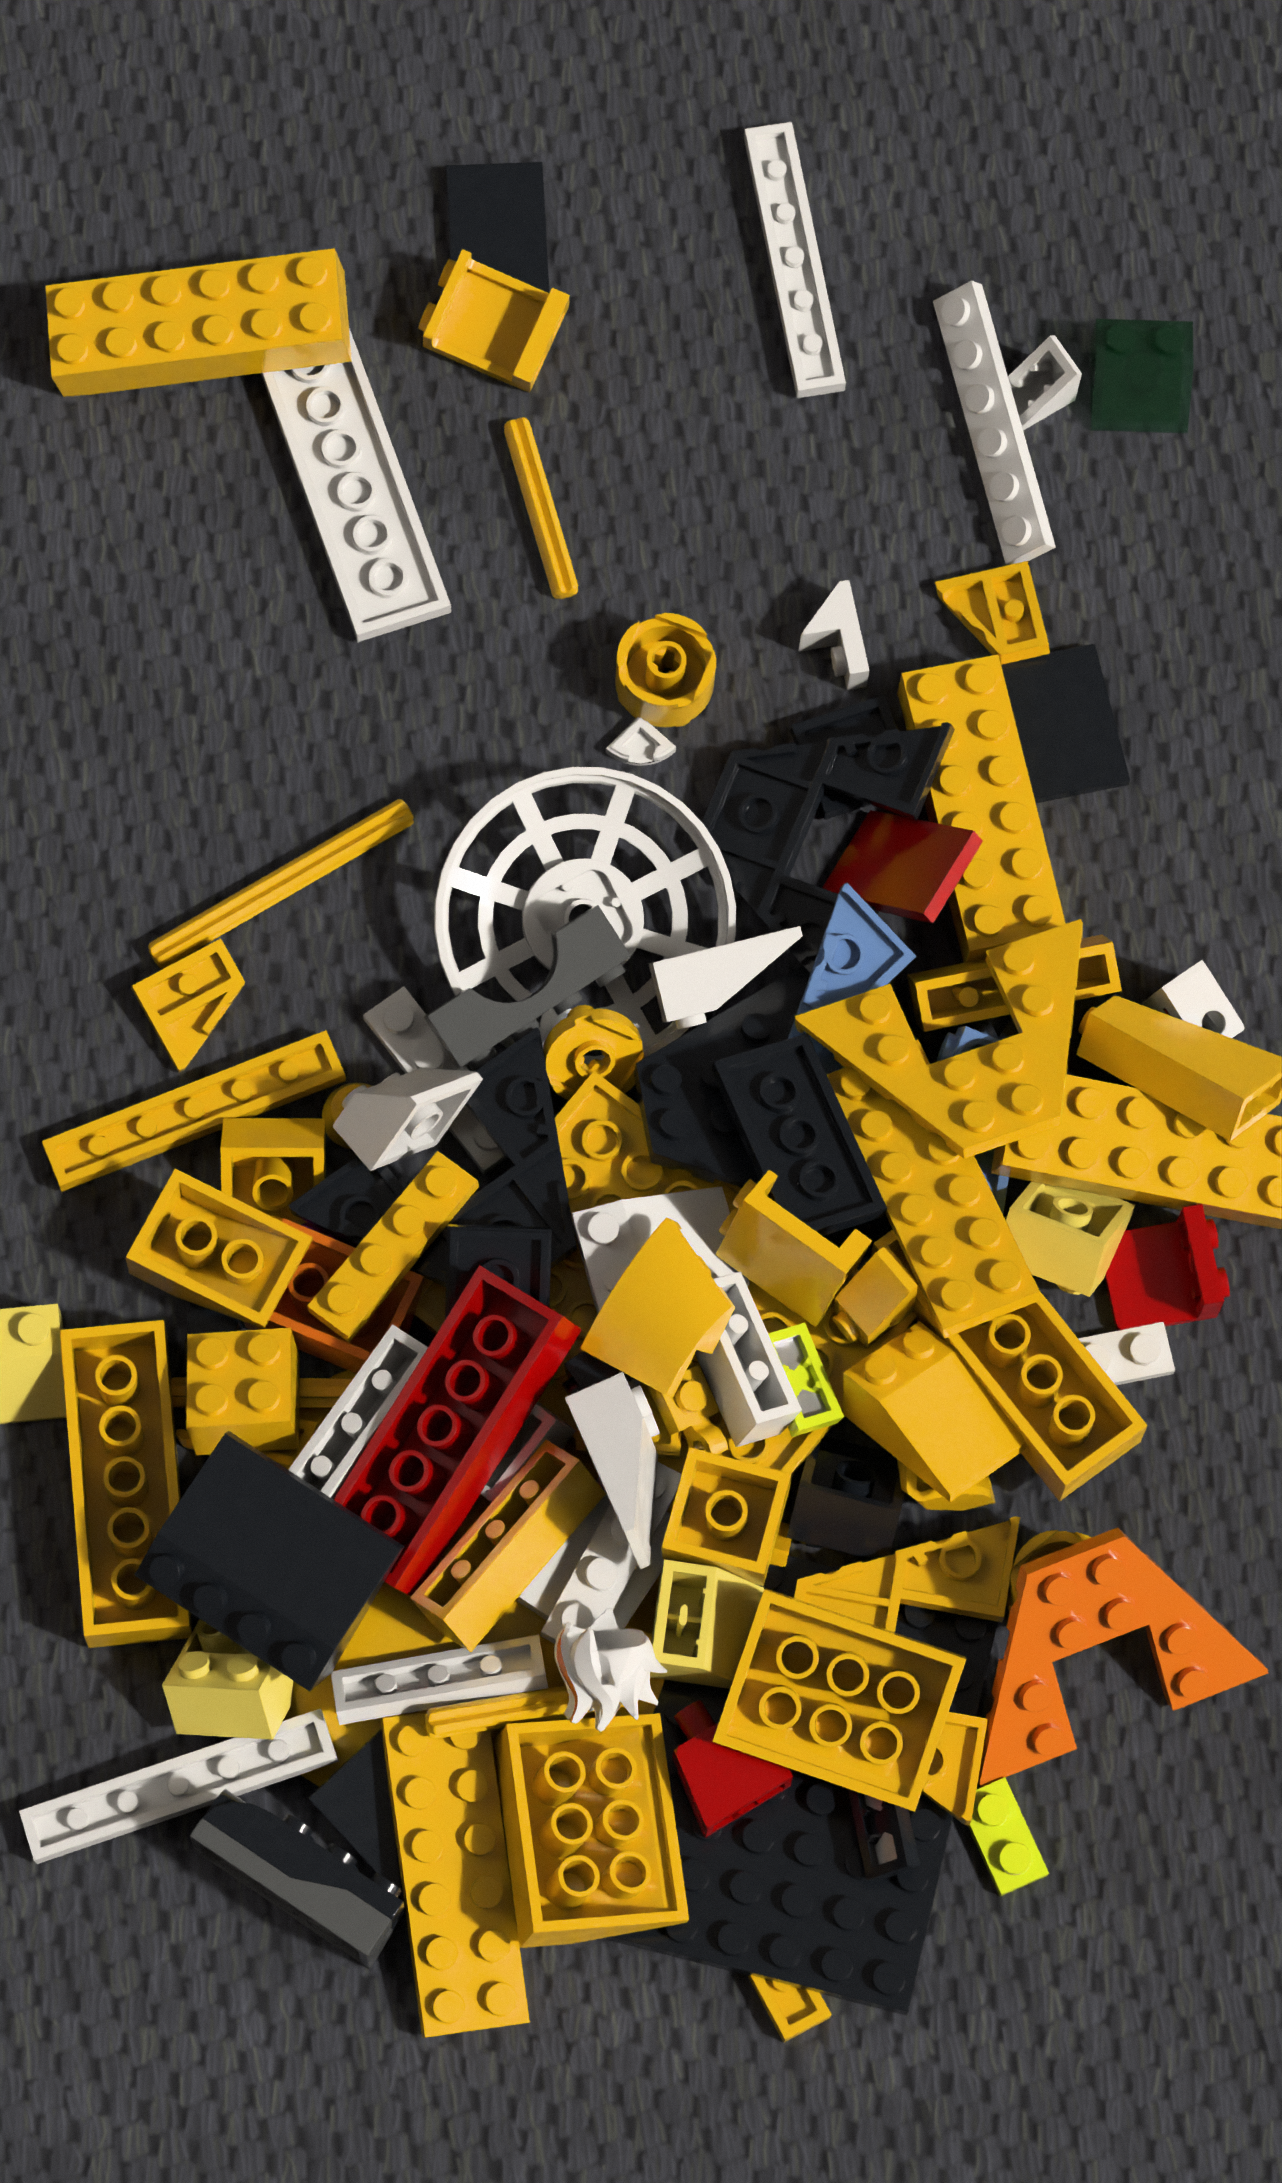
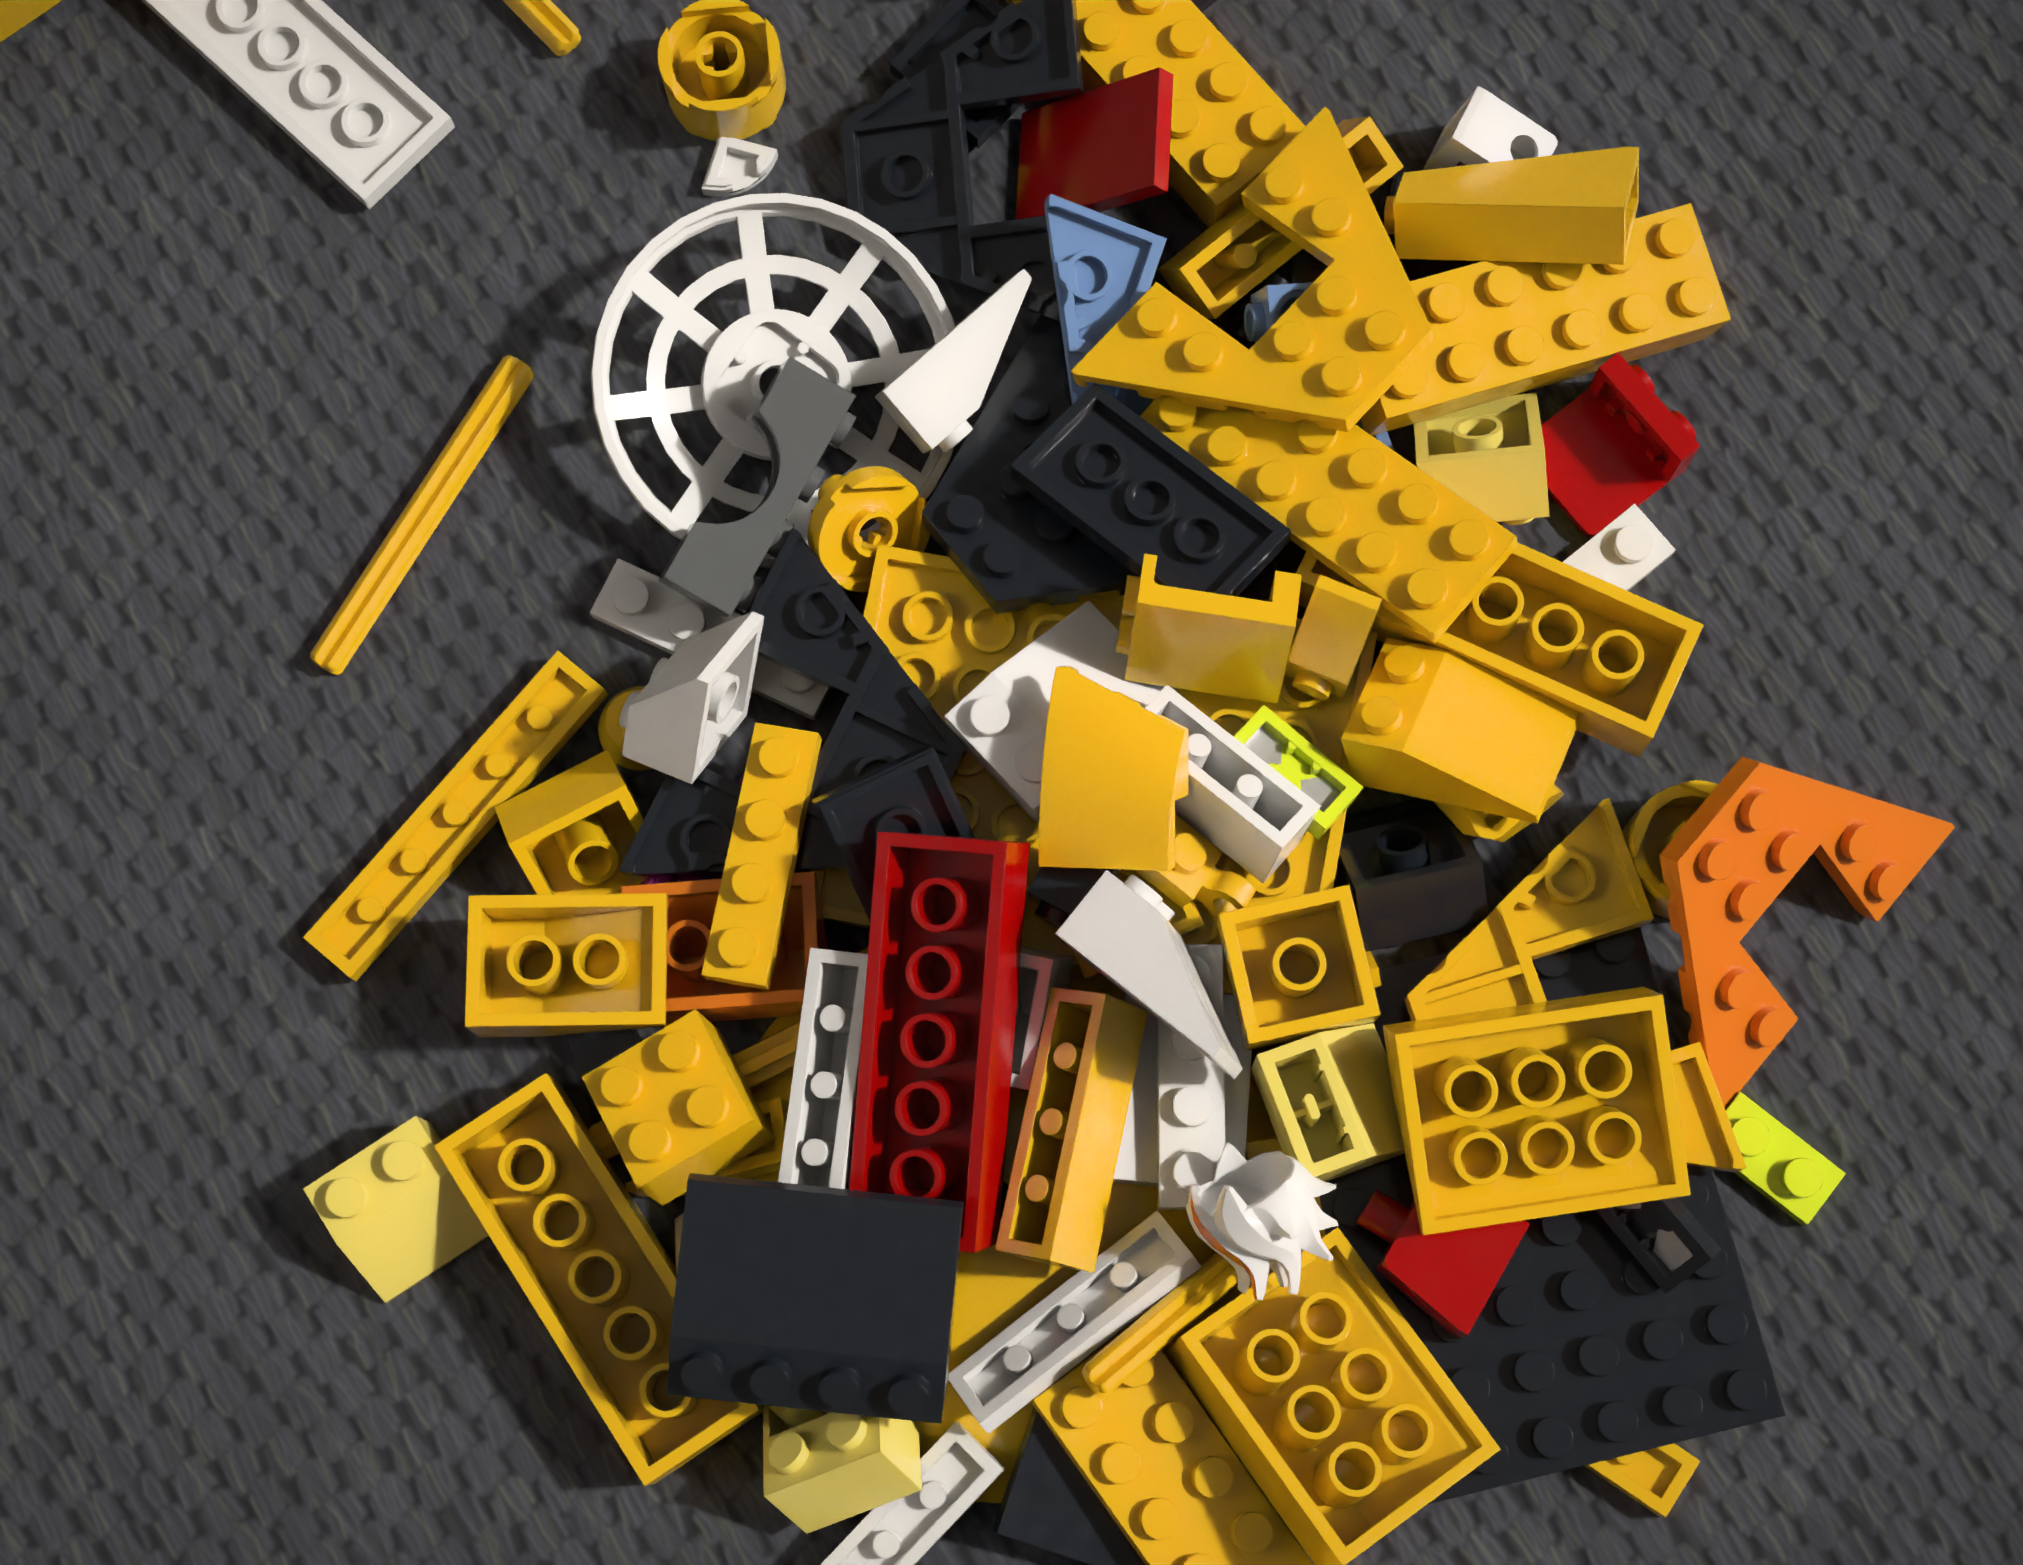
camera: 20 degrees left, 5 degrees up
(189, 999) = (388, 693): yellow wing -> none

